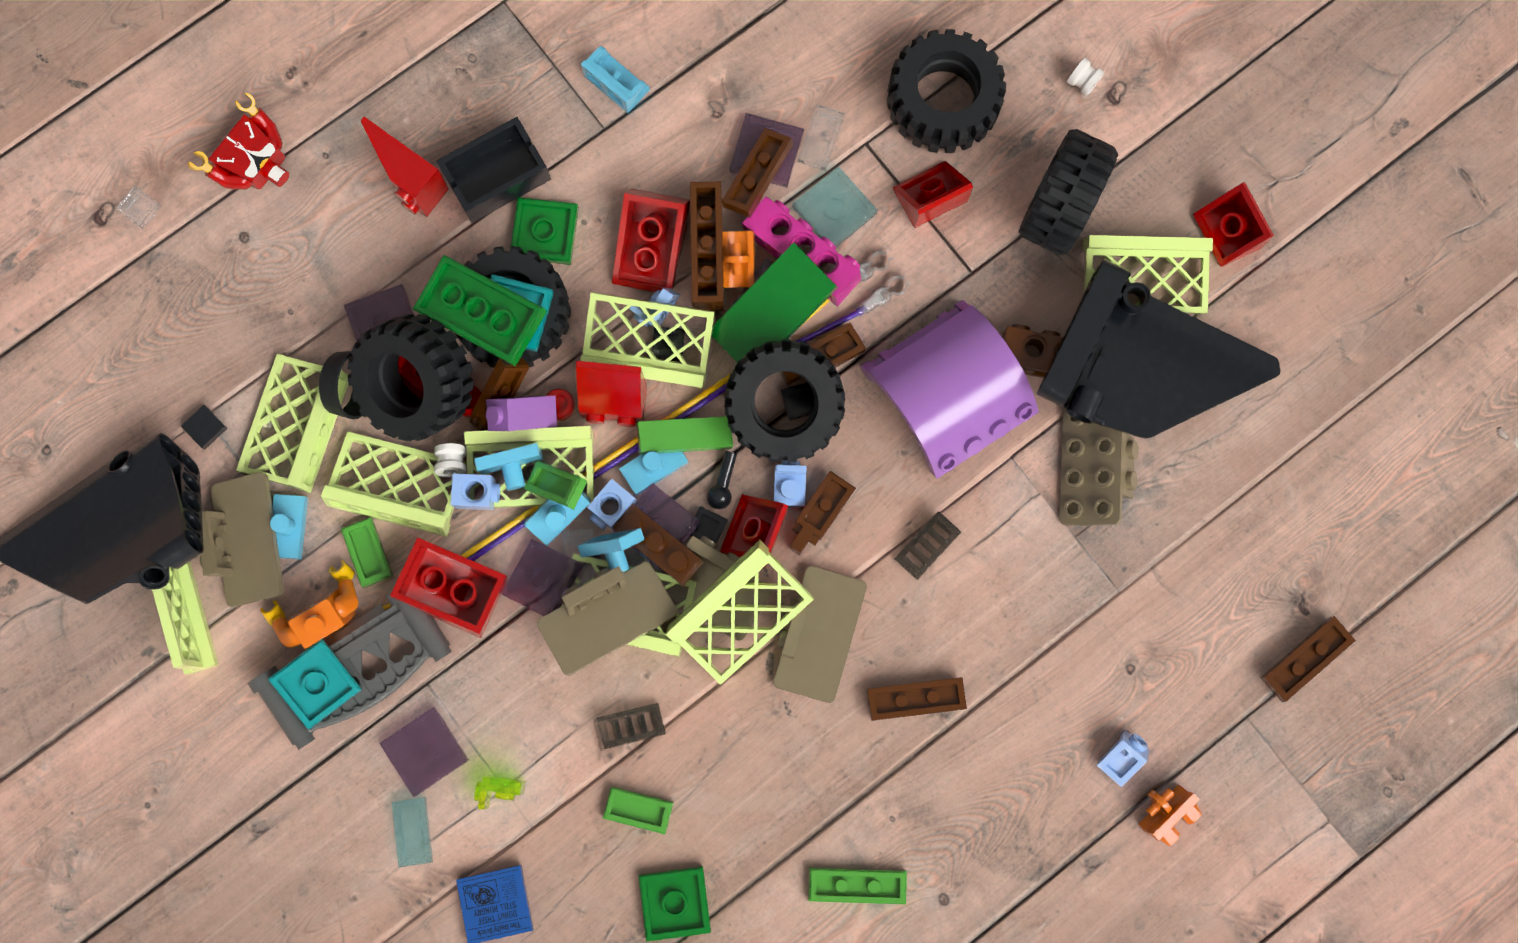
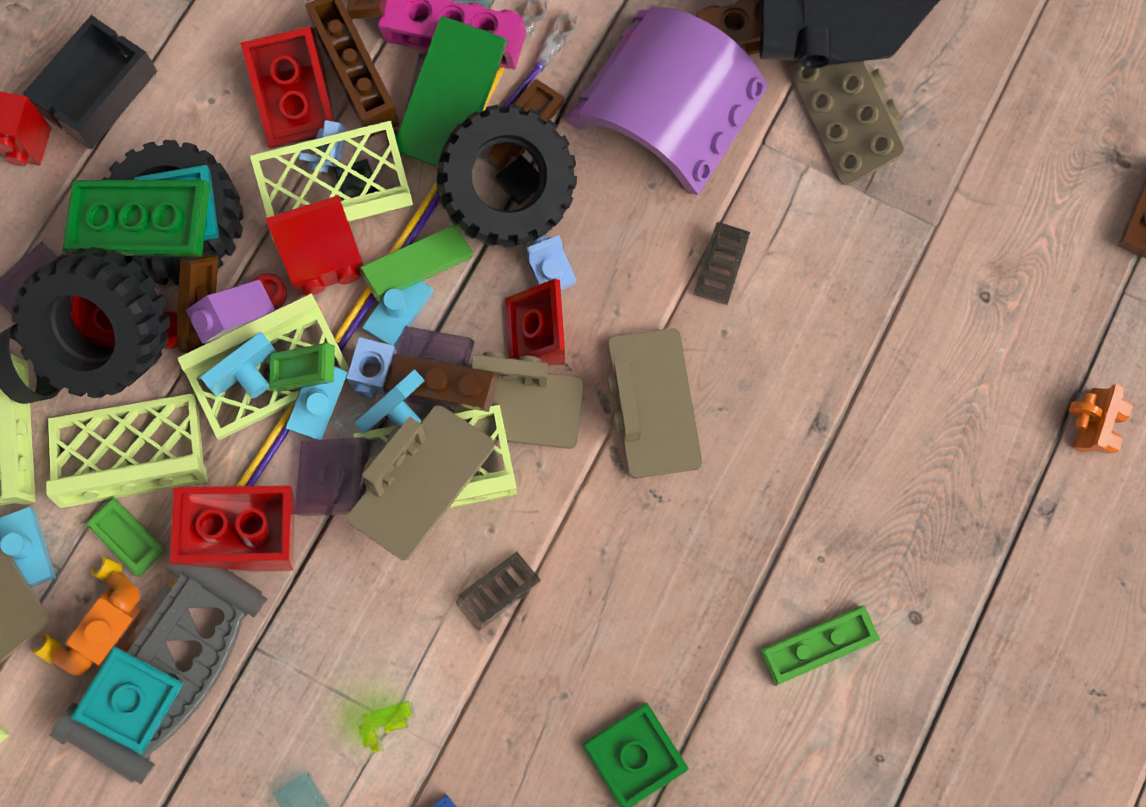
camera: 25 degrees left, 5 degrees down
(424, 752) = (284, 722): clear purple tile -> none
(449, 459) = (174, 395): white wheel -> none
(464, 482) = (200, 411): light blue brick -> none
(546, 228) = (174, 116): green tile -> none
(638, 810) = (548, 675): bright green tile -> none
(710, 525) = (485, 340): black tile -> none
(719, 495) = (481, 310): black bar -> none
(719, 593) = (530, 401): yellowish green fence -> none
(738, 259) = (391, 61): orange hips -> none
(821, 511) = (595, 278): reddish brown hinge -> none
(916, 699) = (786, 422): reddish brown plate -> none
(1124, 757) = (1027, 385): light blue bracket -> none

